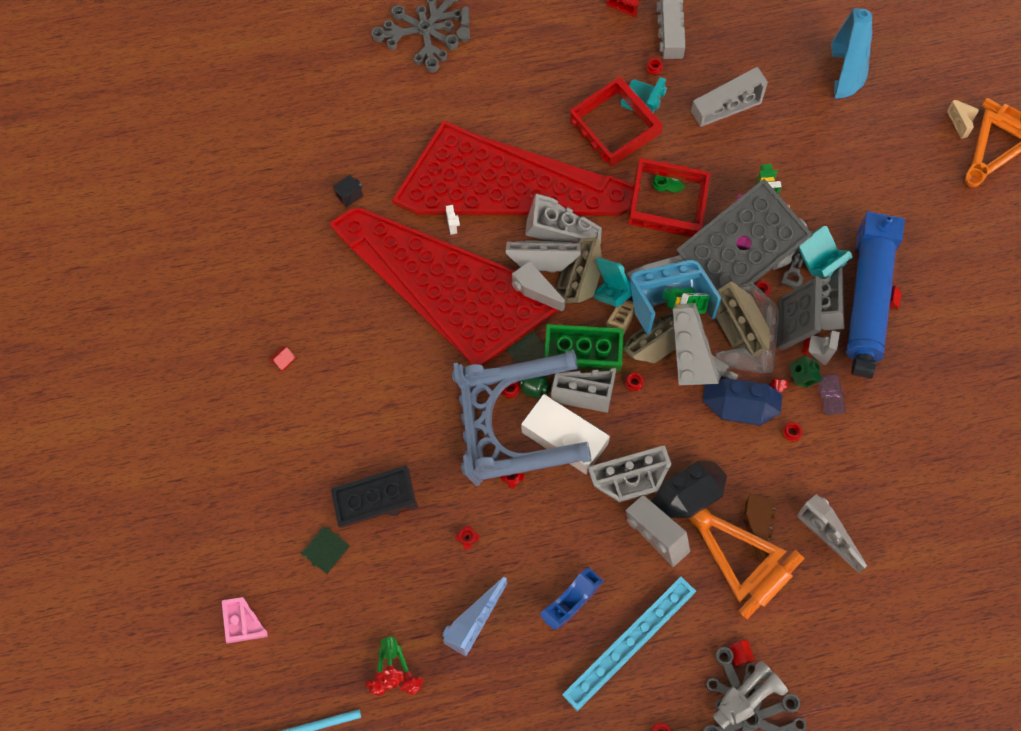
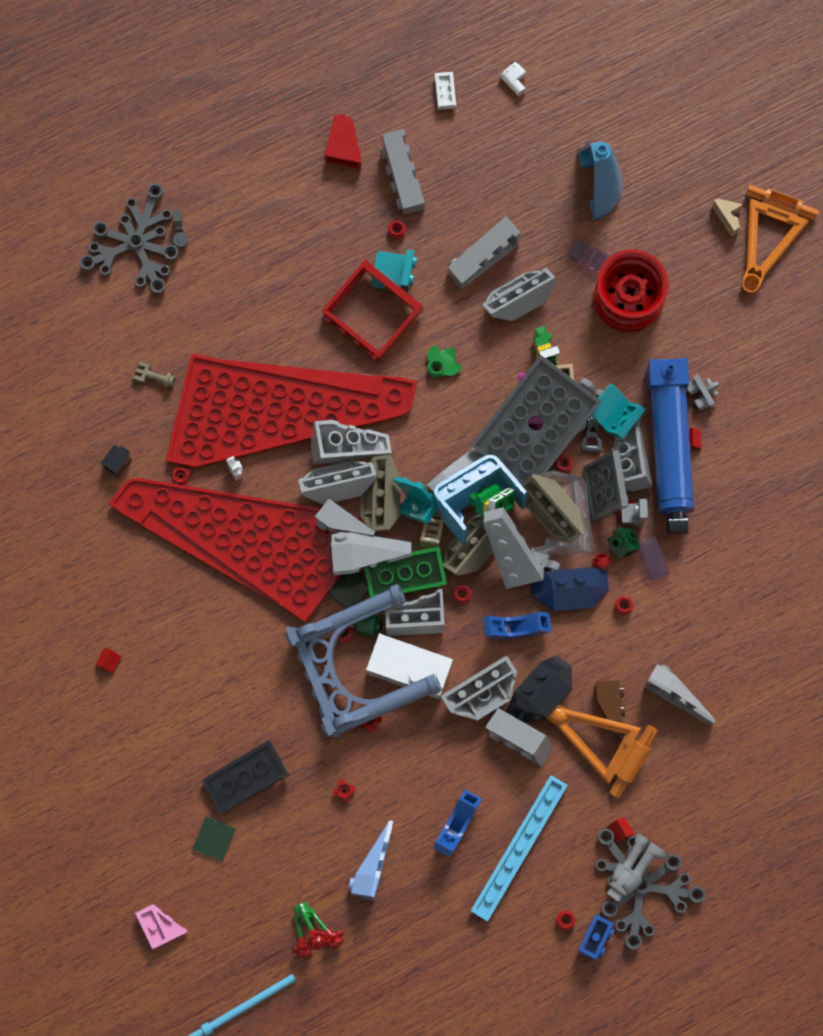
camera: 20 degrees left, 10 degrees up
(398, 127) = (168, 380): none -> dark tan hinge
(401, 213) = (180, 471): none -> red plate
(541, 311) = (357, 550): none -> light grey wedge
(666, 224) = (450, 418): red window -> none
(681, 425) = (517, 627): none -> blue arch
(755, 140) = (520, 295): none -> light grey wedge
(822, 124) = (587, 256): none -> slope
(854, 152) = (631, 264): none -> red wheel
(913, 257) = (706, 400): none -> light grey hips

